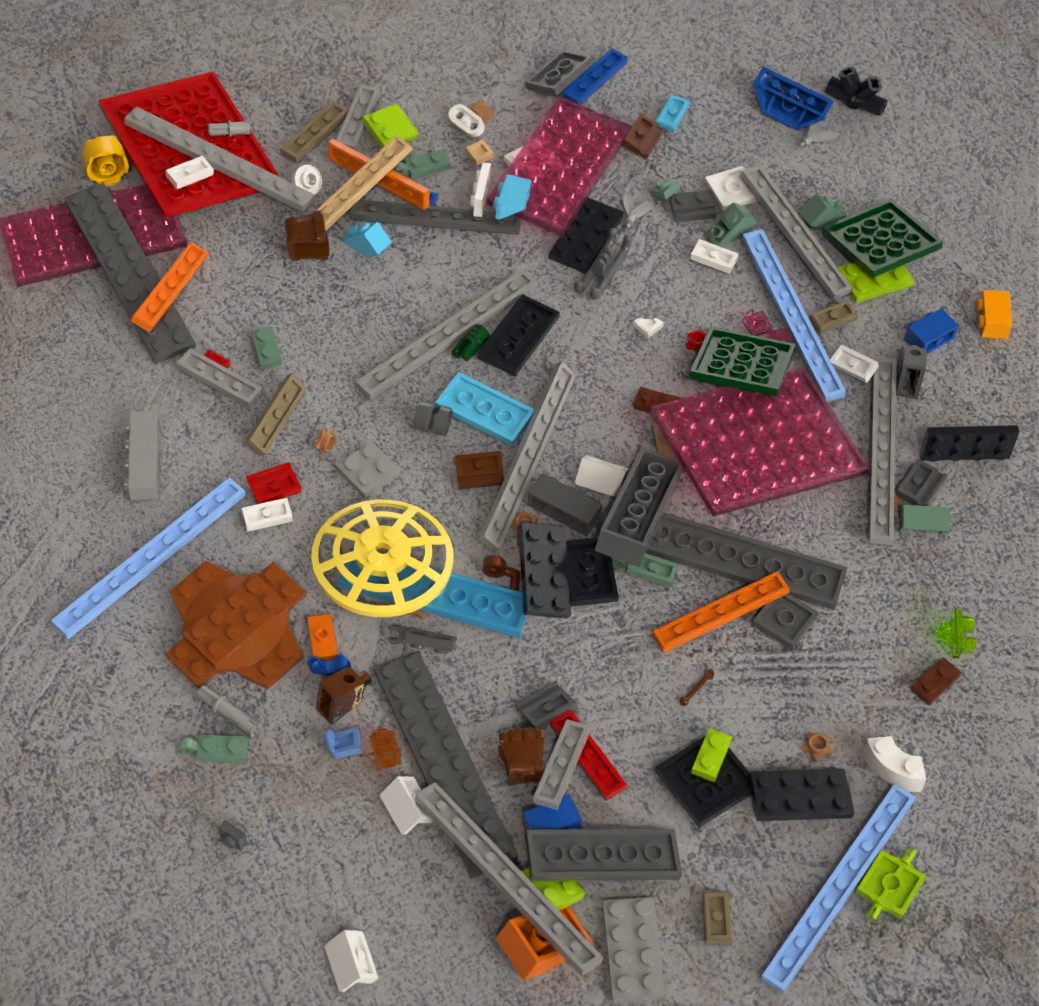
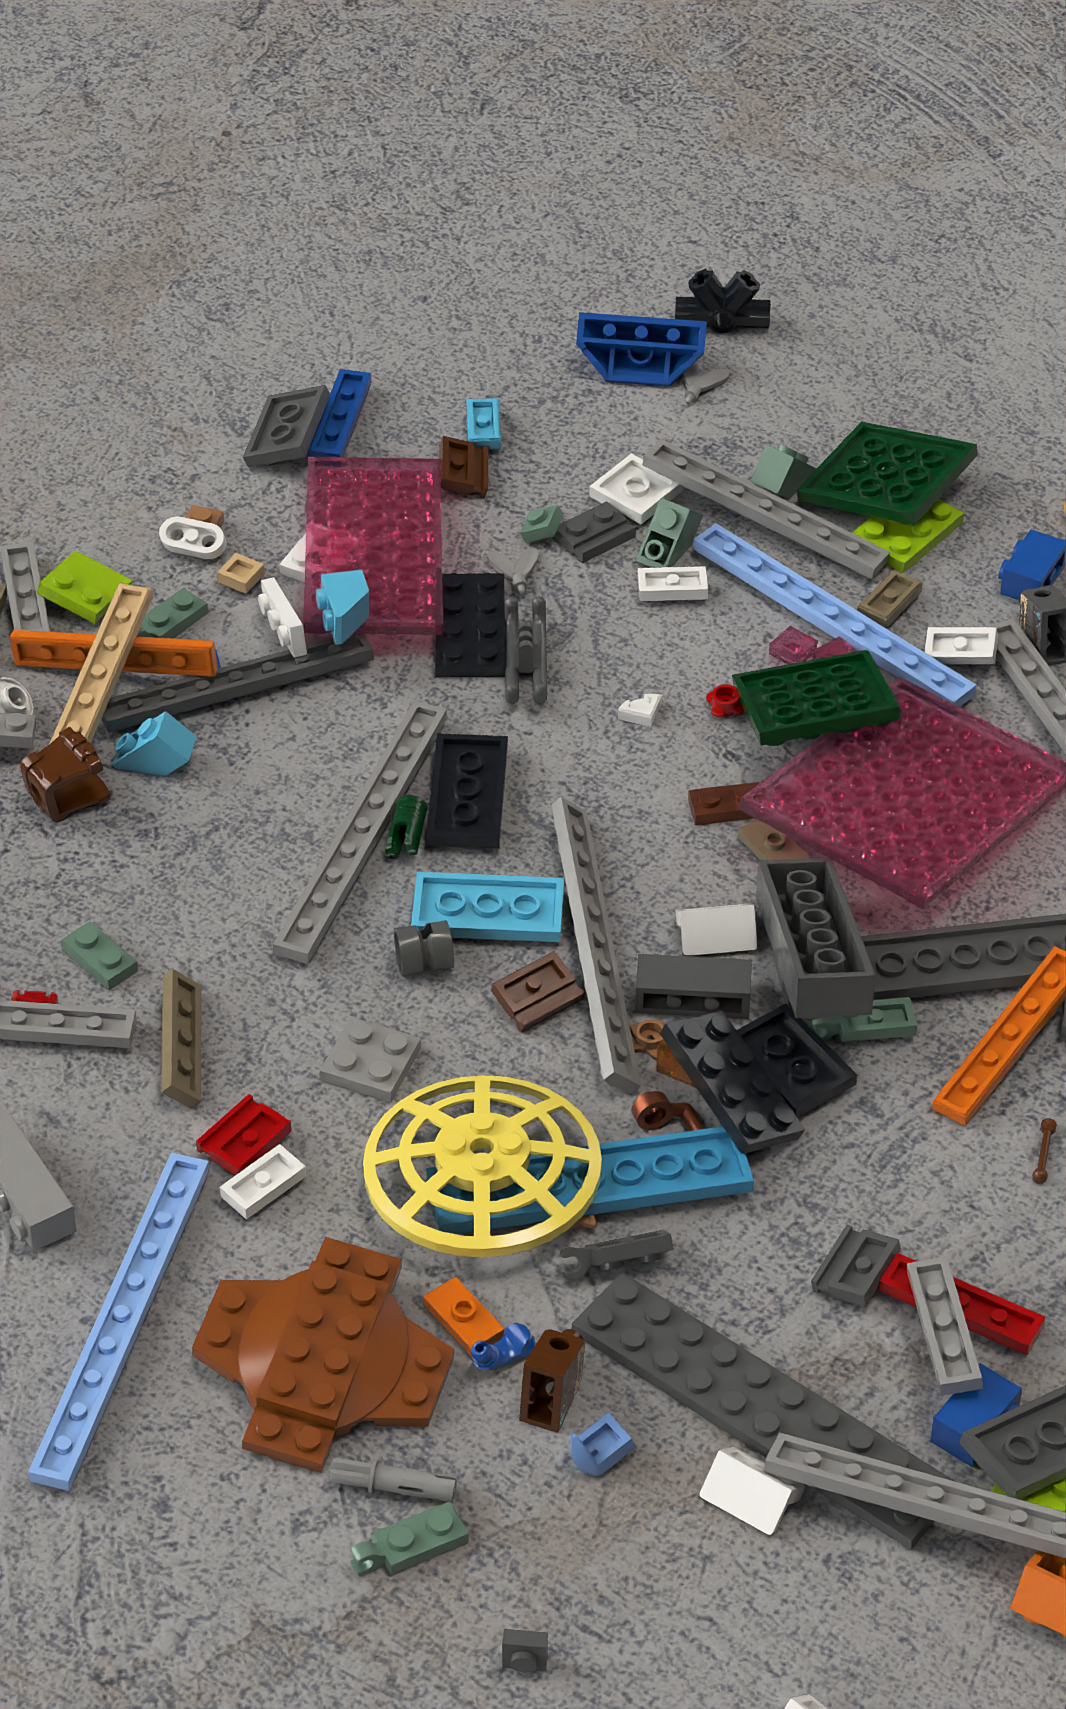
camera: 25 degrees left, 10 degrees down
(326, 441) = (285, 1043): medium nougat plate -> none
(385, 749) = (667, 1427): clear orange brick -> none
(522, 755) = (878, 1342): reddish brown piece -> none

